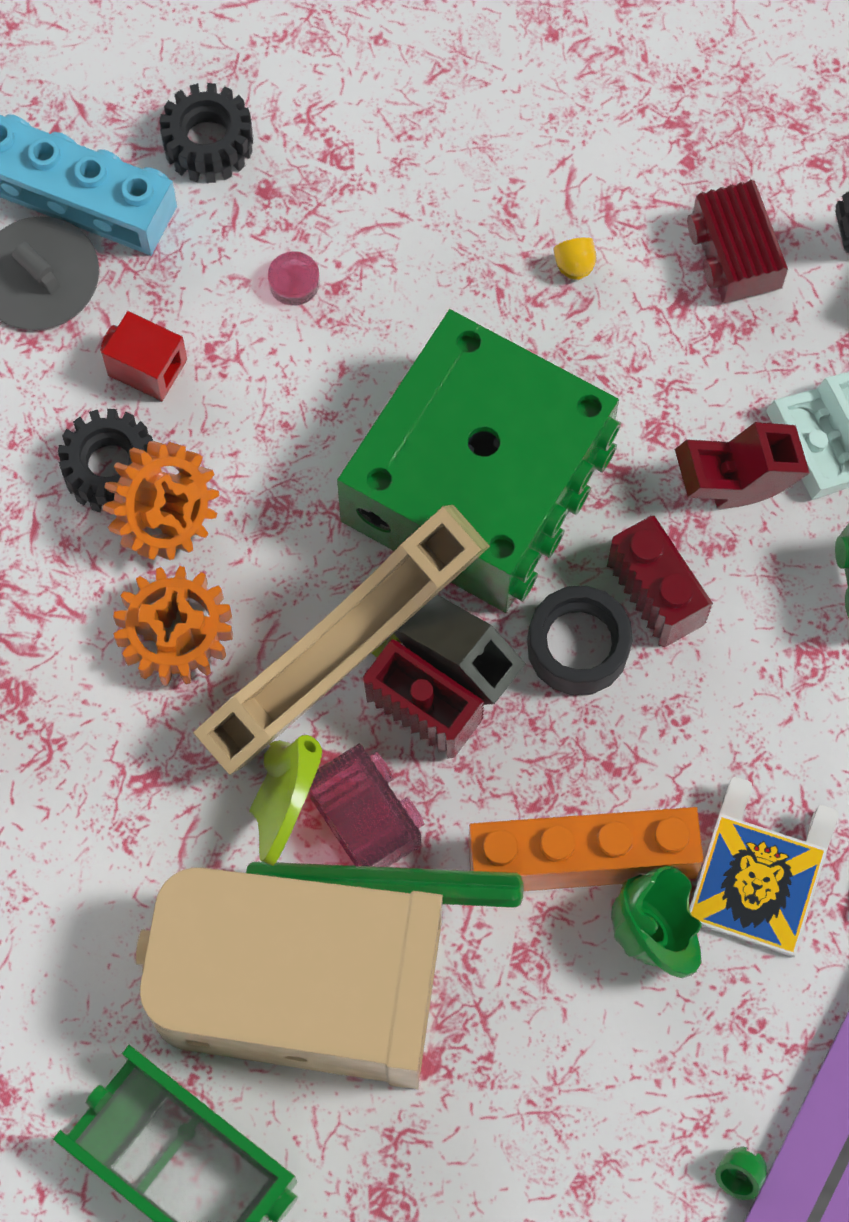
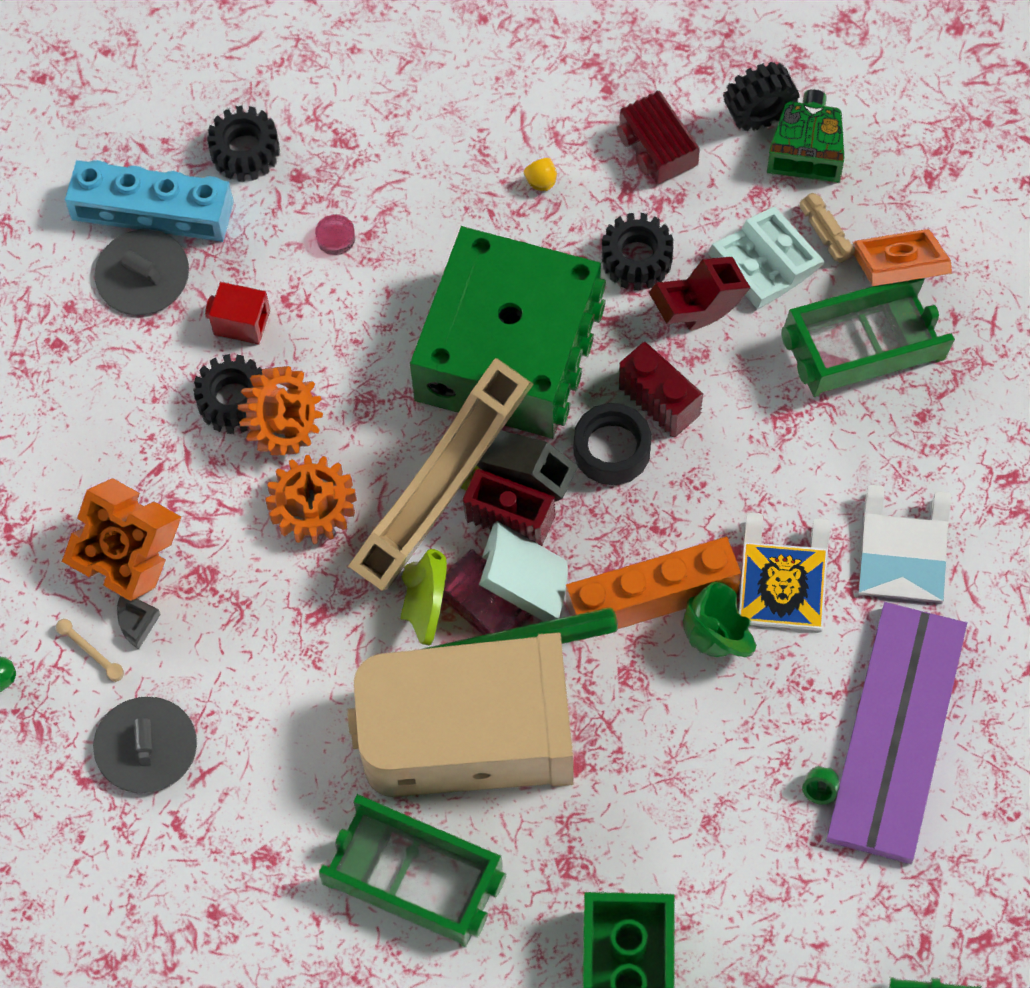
camera: 10 degrees left, 5 degrees down
(420, 793) = (524, 573): none -> light aqua slope
(682, 361) = (637, 231): none -> black tyre

